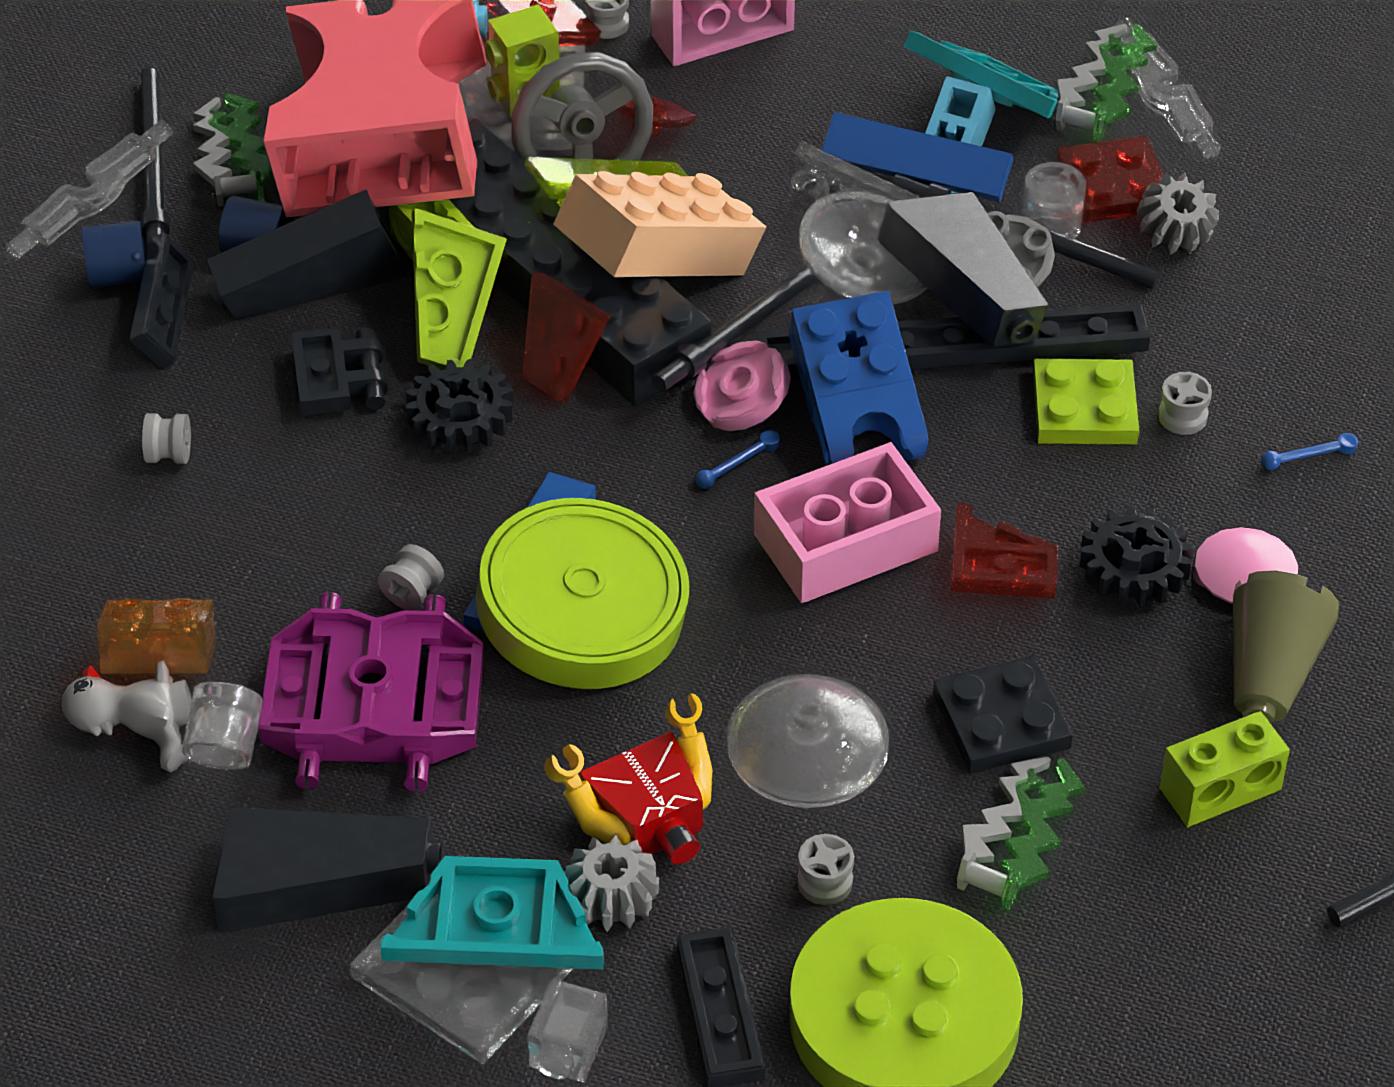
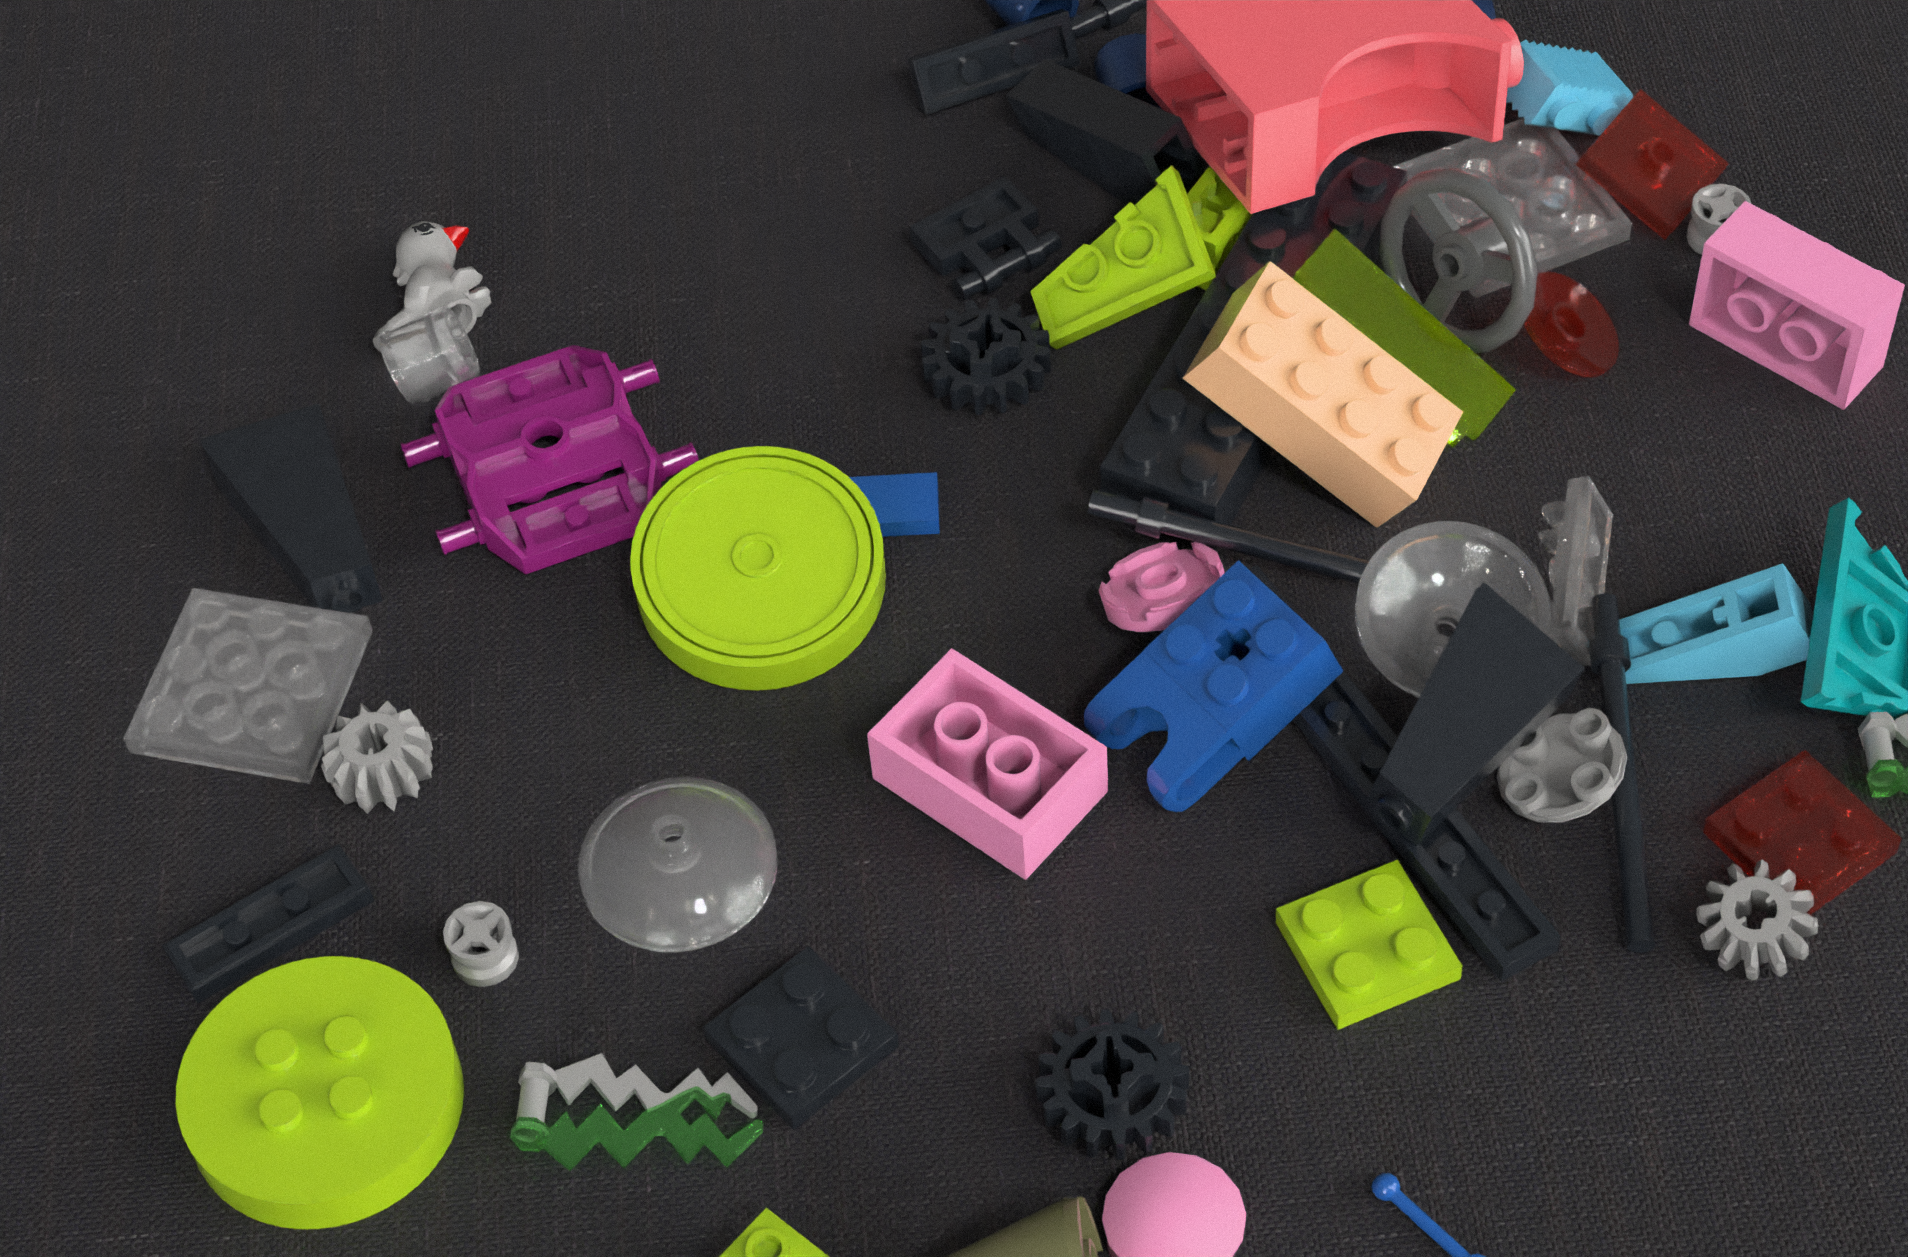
camera: 70 degrees right, 5 degrees up
(142, 632) = (524, 258): clear orange brick -> none
(166, 438) = (803, 150): light grey wheel -> none
(411, 577) = (716, 419): light grey wheel -> none
(495, 916) = (267, 672): teal wing -> none
(517, 50) = (1516, 154): lime brick -> none
(559, 336) = (1121, 387): clear red wing -> none
(567, 1031) = (168, 797): clear brick -> none
(646, 792) = (504, 737): torso -> none
(768, 441) = (1114, 652): blue hinge -> none
(919, 156) = (1654, 605): blue tile -> none
(1001, 559) = (1037, 942): clear red wing -> none
(1055, 197) = (1683, 776): clear piece -> none
(1185, 403) = (1425, 1034): light grey wheel -> none

